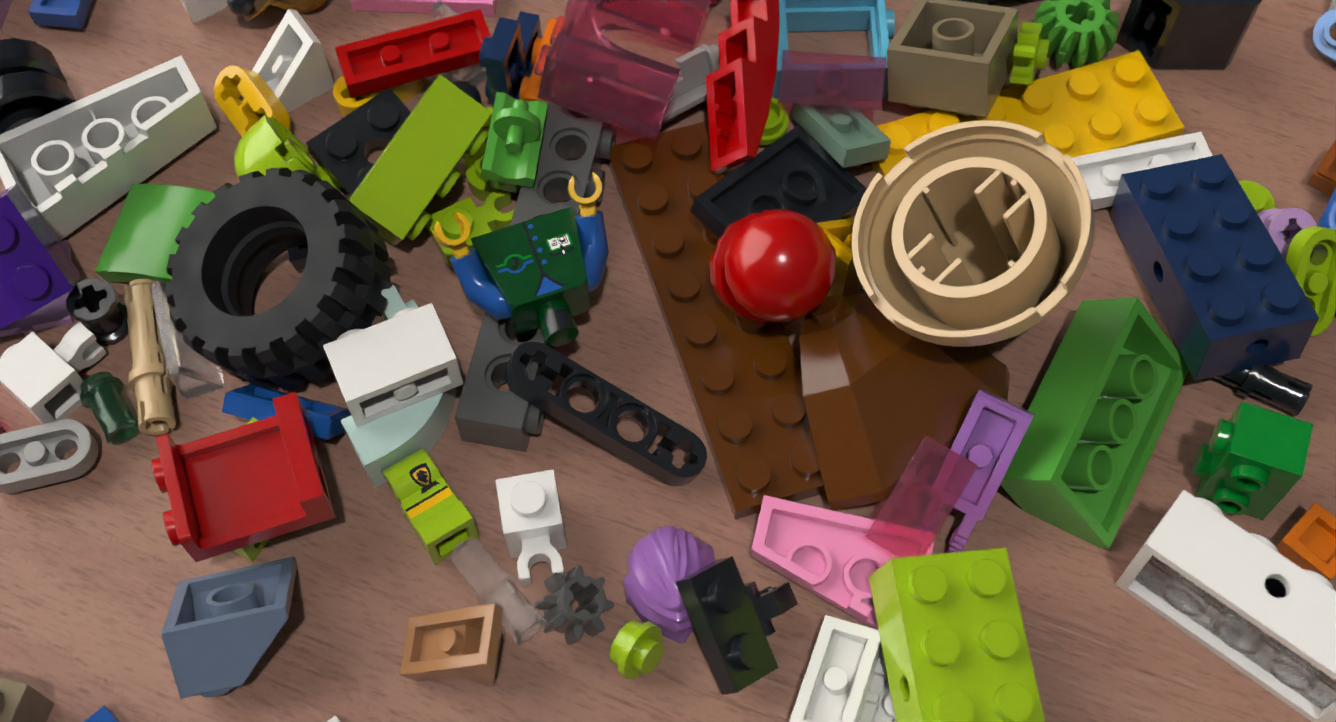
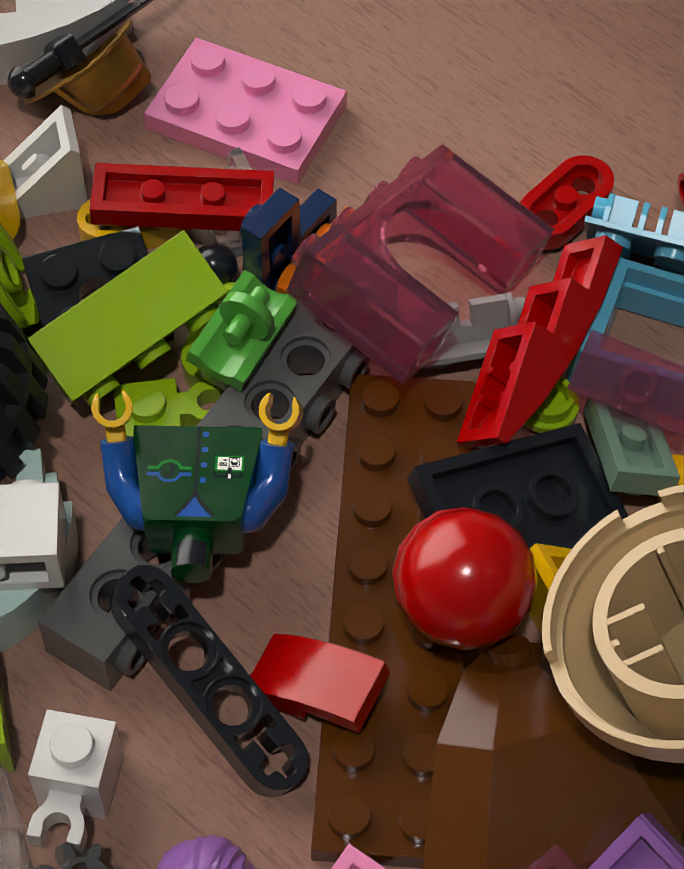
camera: 20 degrees right, 5 degrees down
(689, 382) = (320, 679): none -> slope

